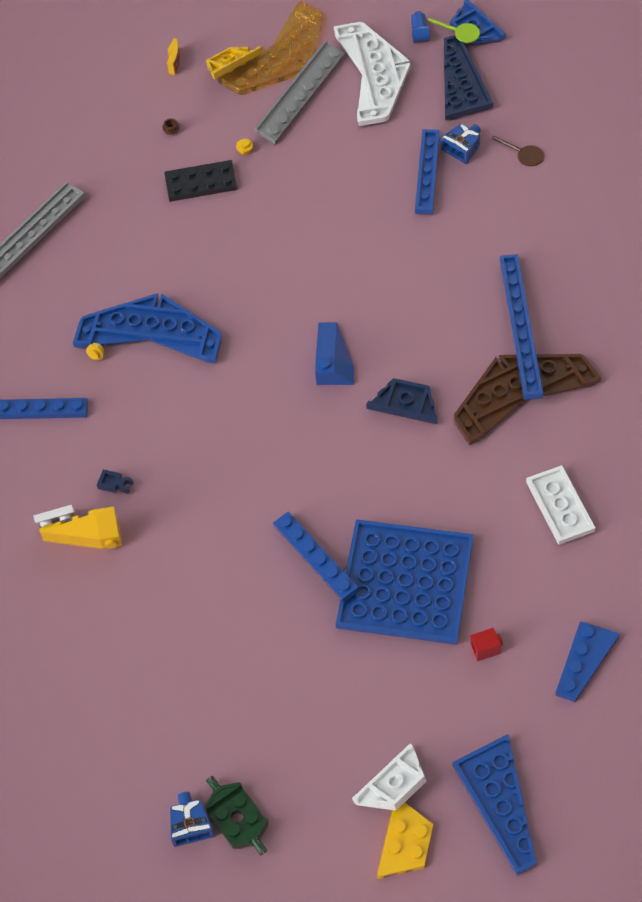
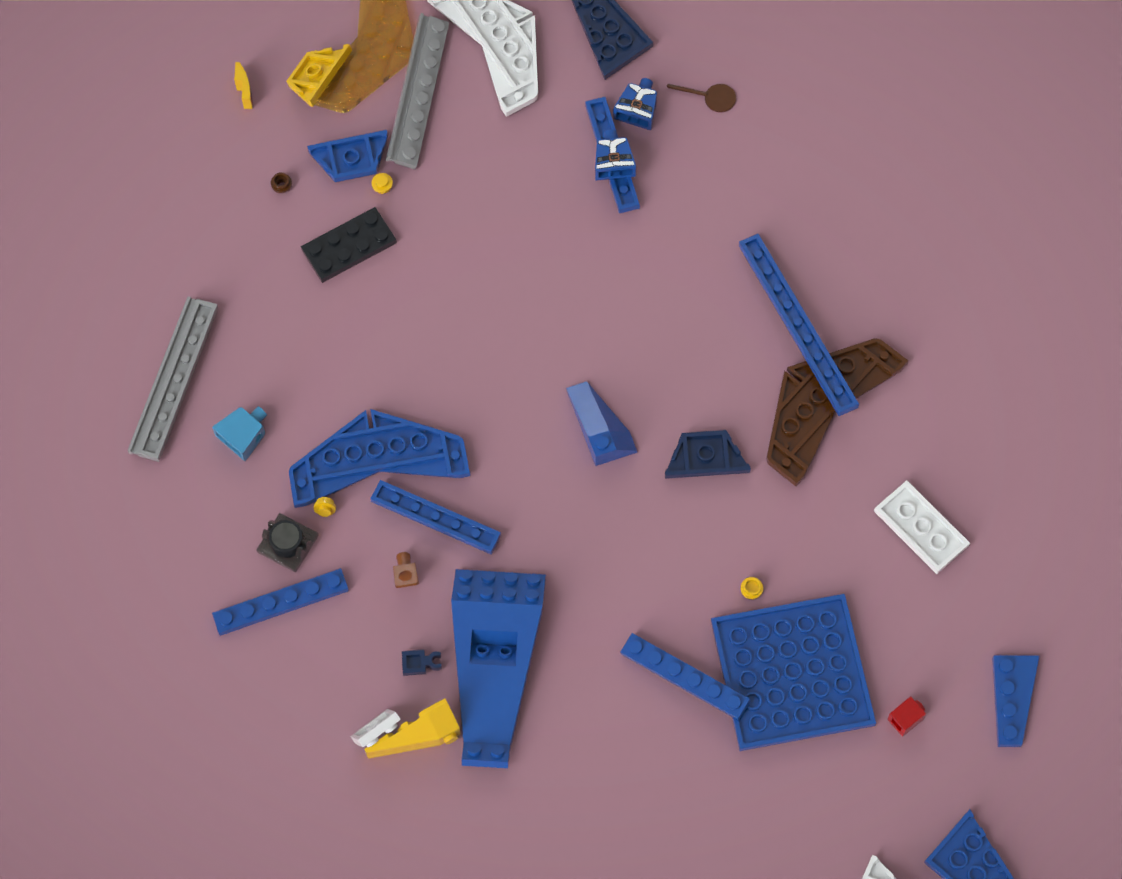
camera: 25 degrees left, 10 degrees up
(56, 367) = (288, 540): none -> piece
(60, 282) = (241, 431): none -> dark azure torso
(131, 414) = (405, 572): none -> dark orange bracket
(173, 487) = (494, 644): none -> blue wing
(175, 383) = (435, 517): none -> blue plate
(230, 122) = (350, 156): none -> blue wing
(400, 508) = (751, 588): none -> yellow plate
(424, 170) = (614, 157): none -> blue torso

